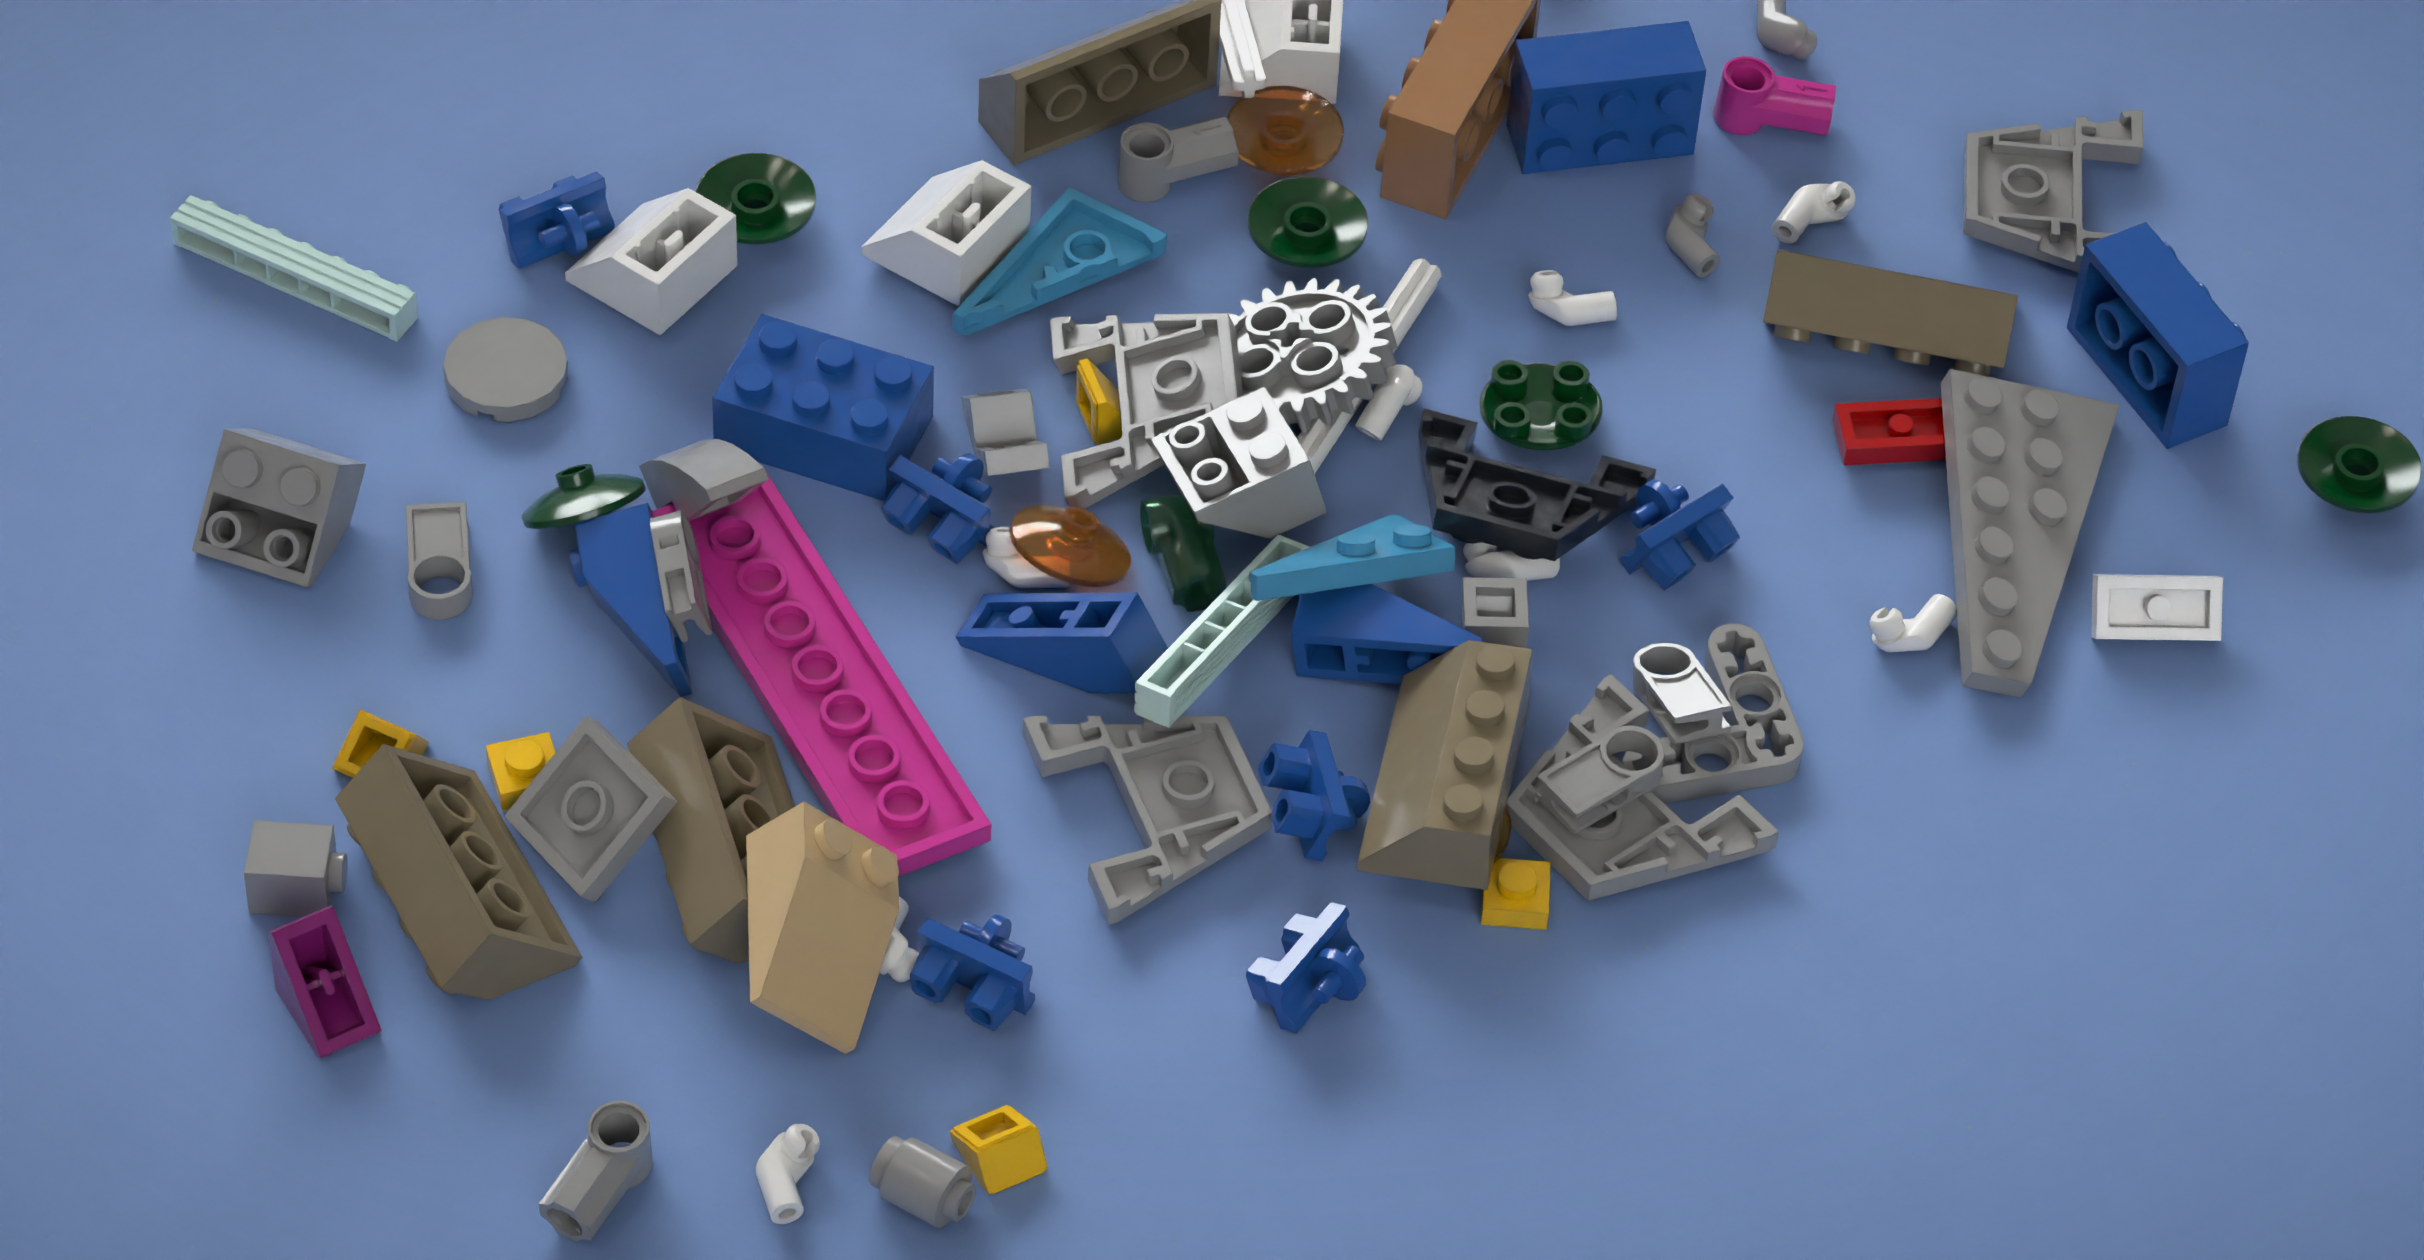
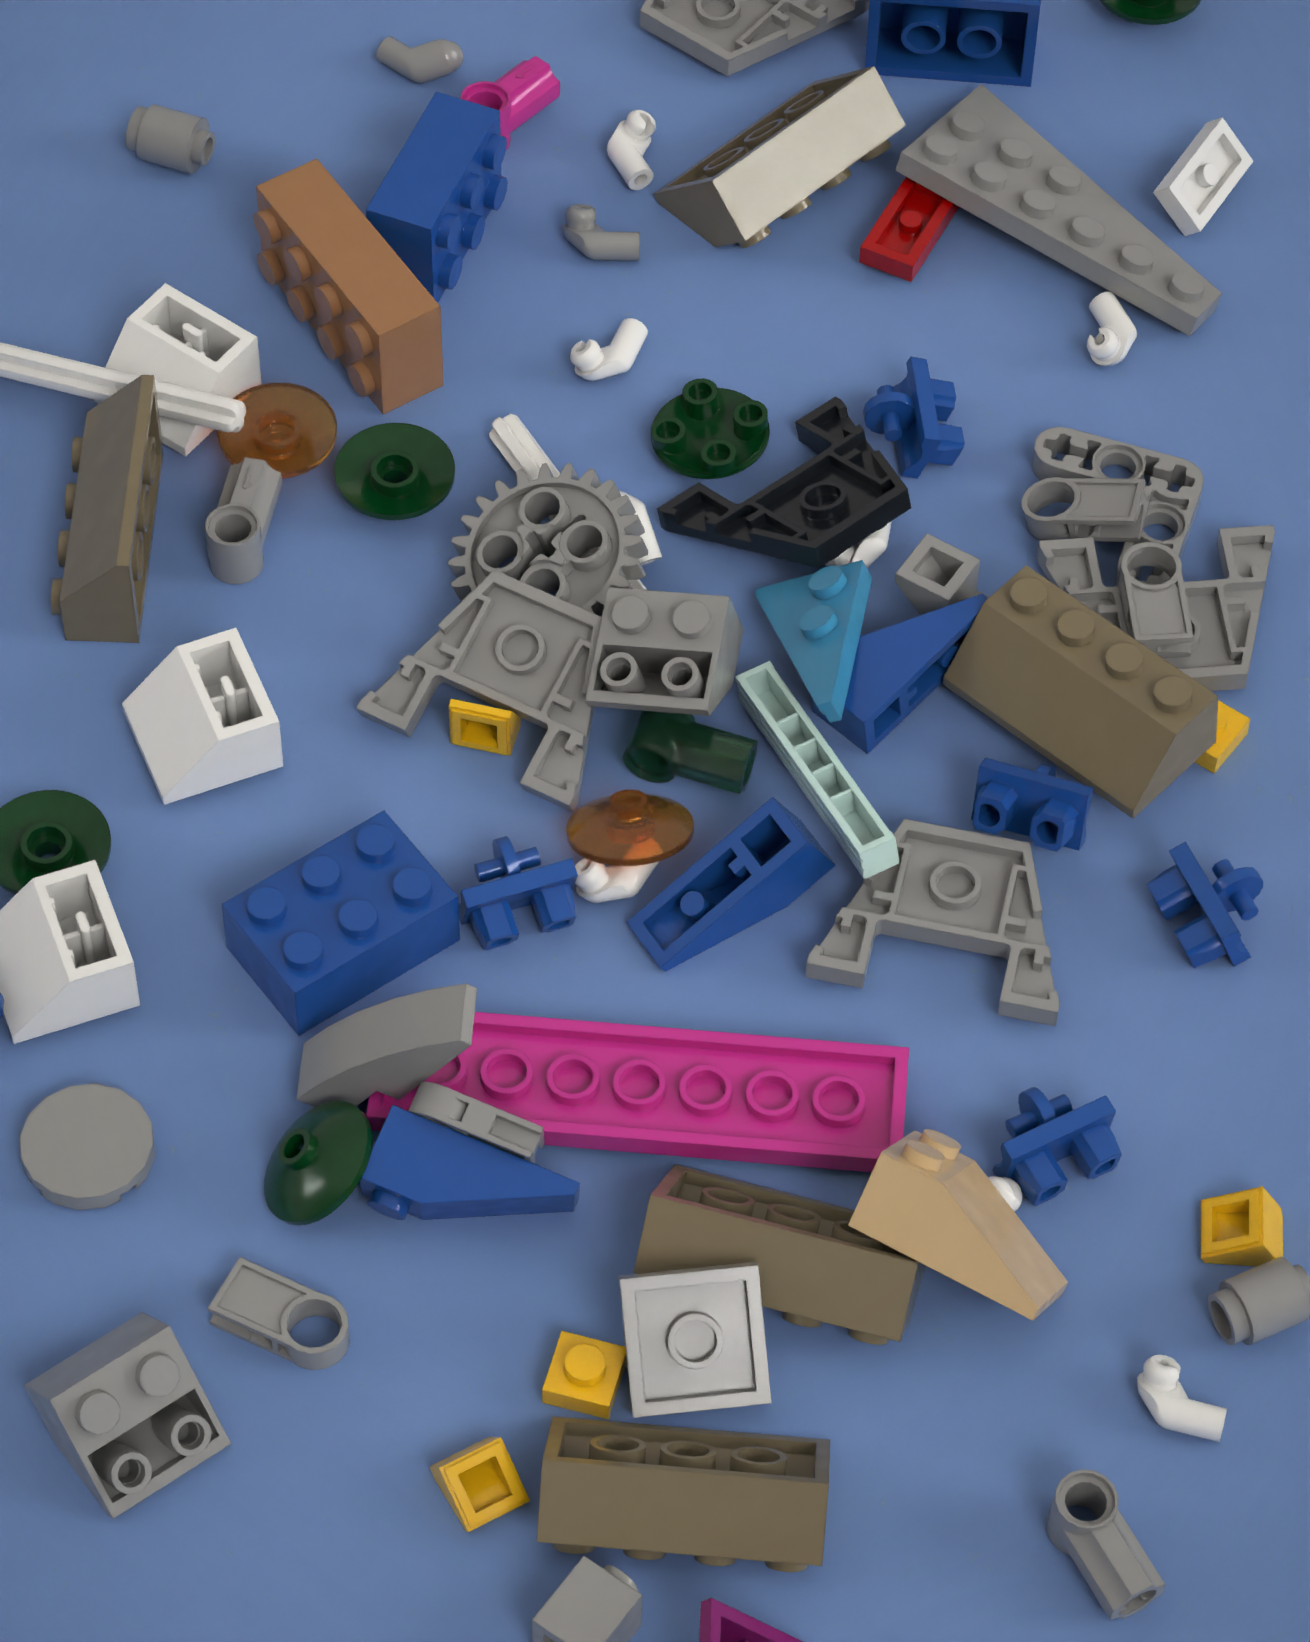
camera: 55 degrees left, 5 degrees up
(1004, 432) = (456, 812): light grey slope -> none
(1062, 253) = (292, 653): dark azure wing -> none

